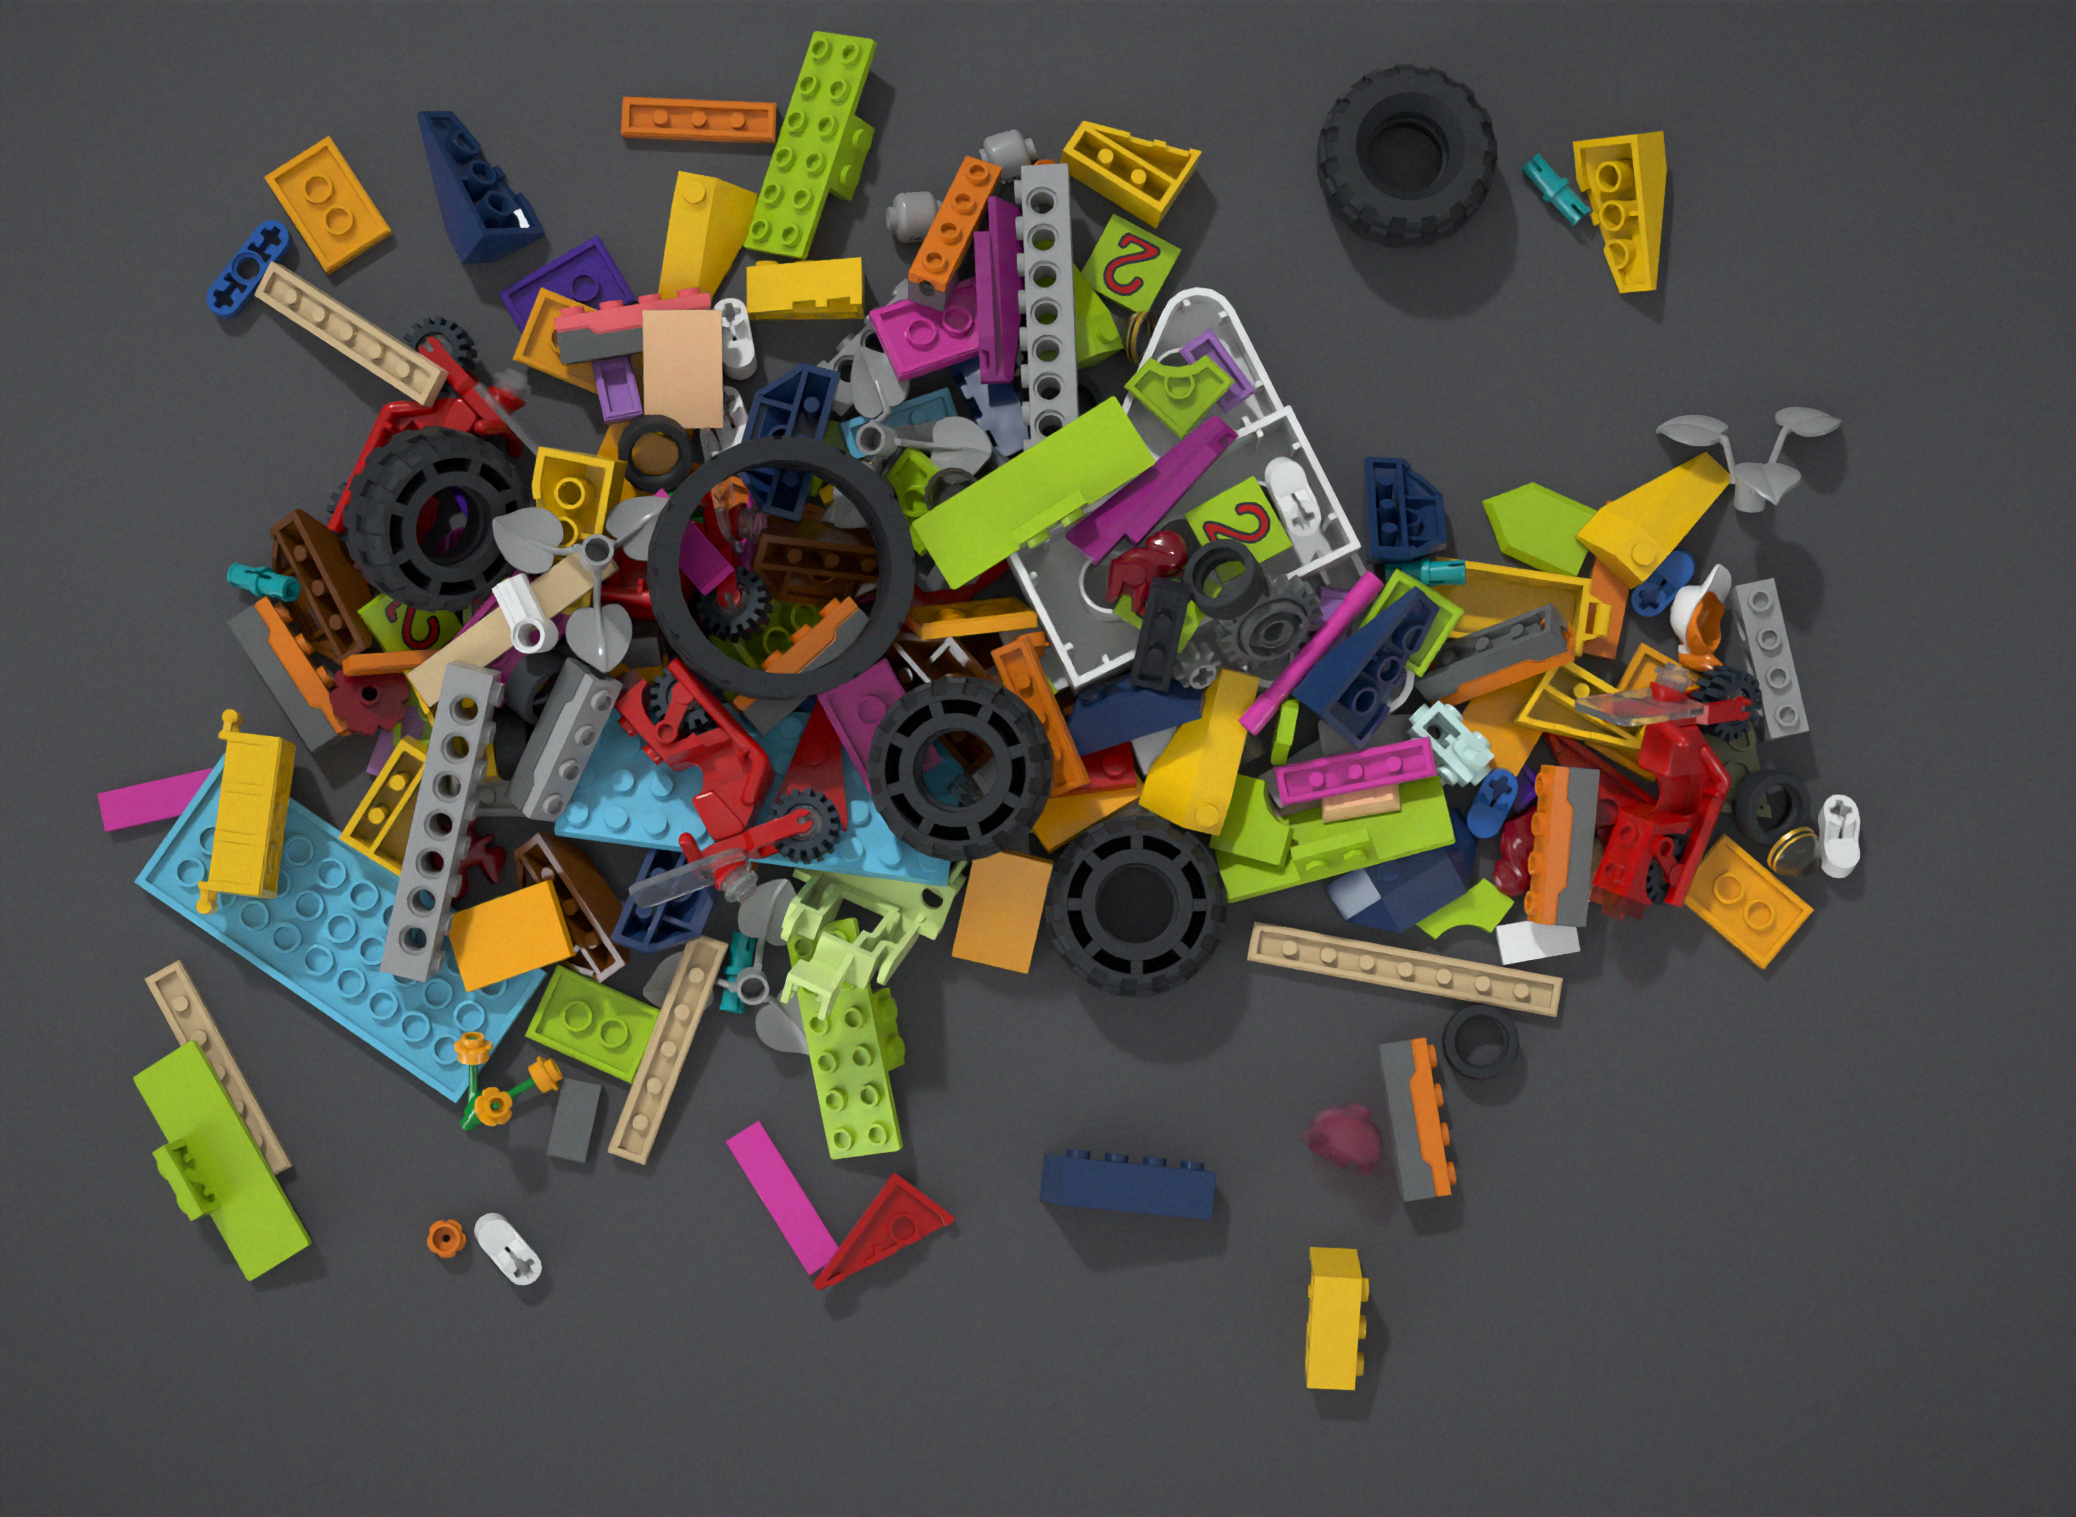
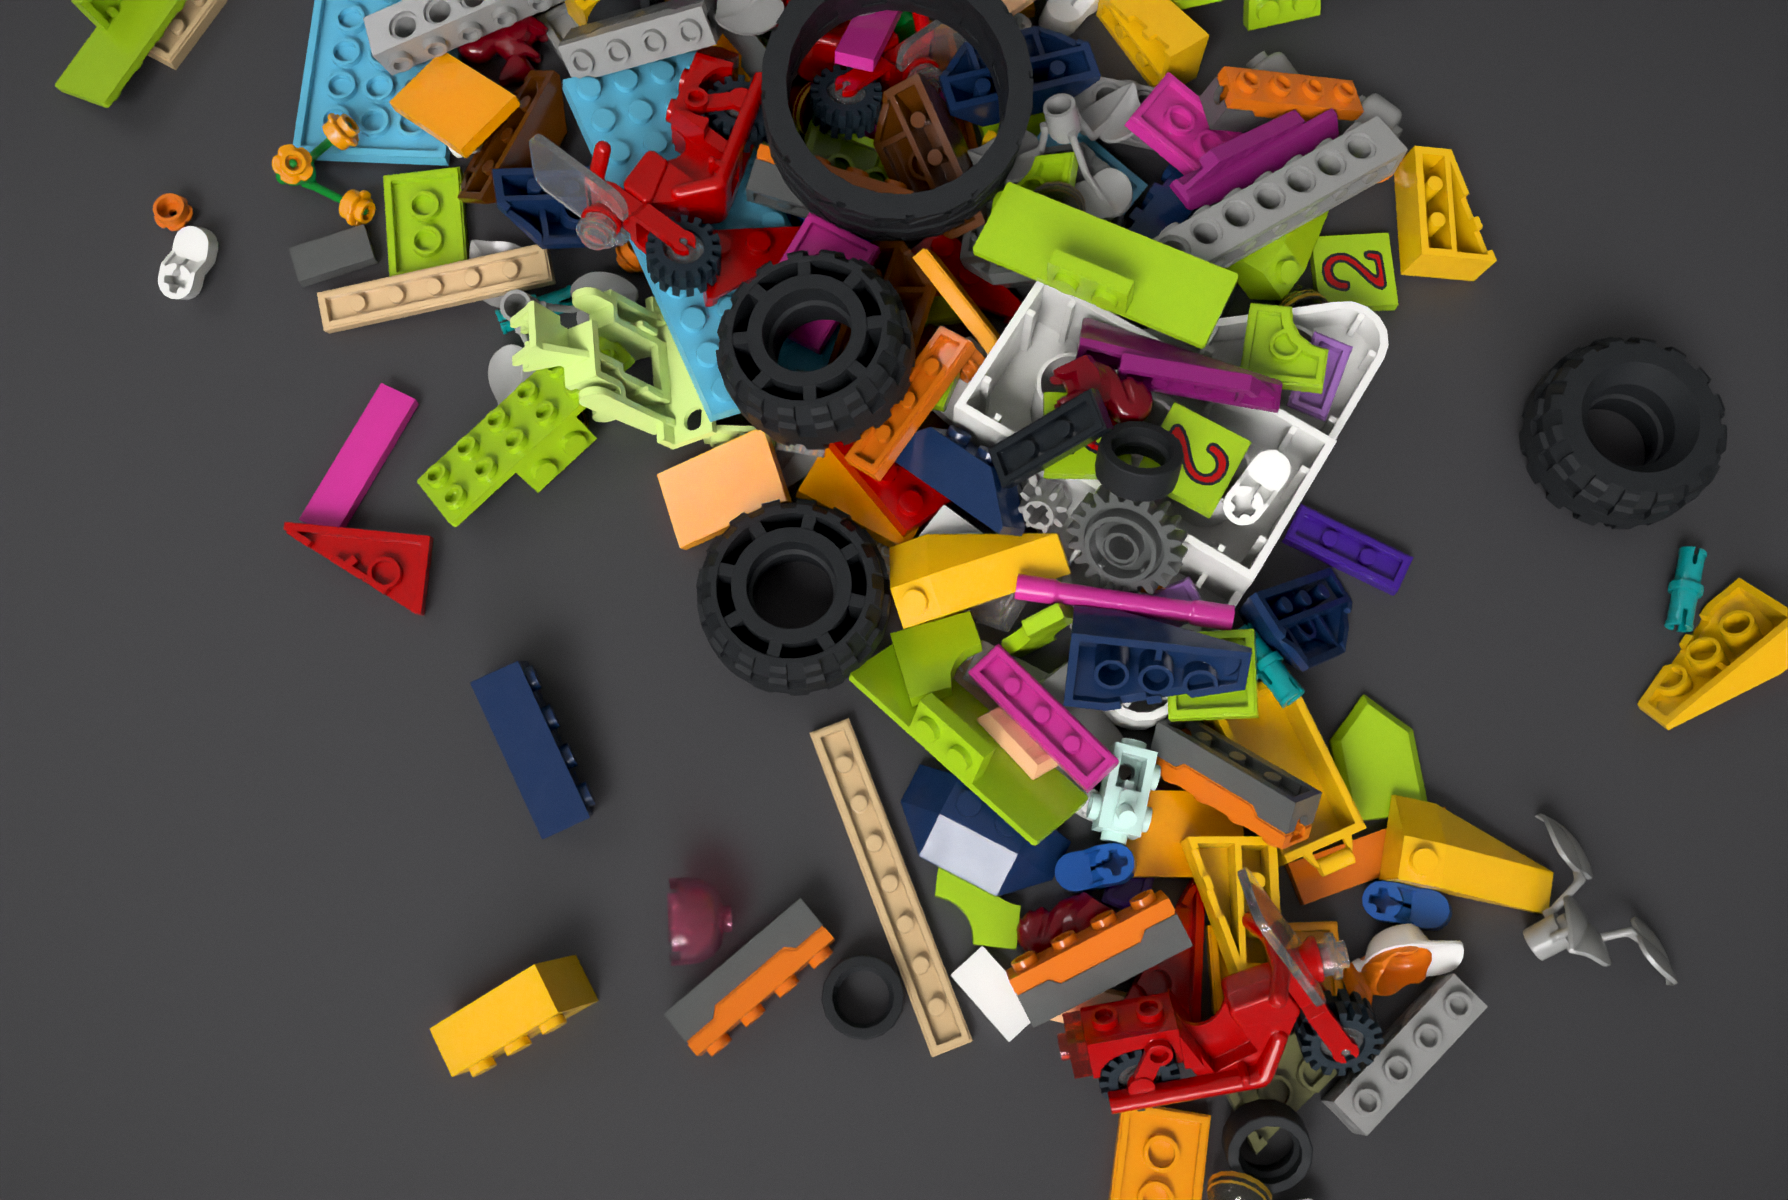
camera: 60 degrees right, 10 degrees down
(1363, 431) = (1347, 549): none -> dark purple tile

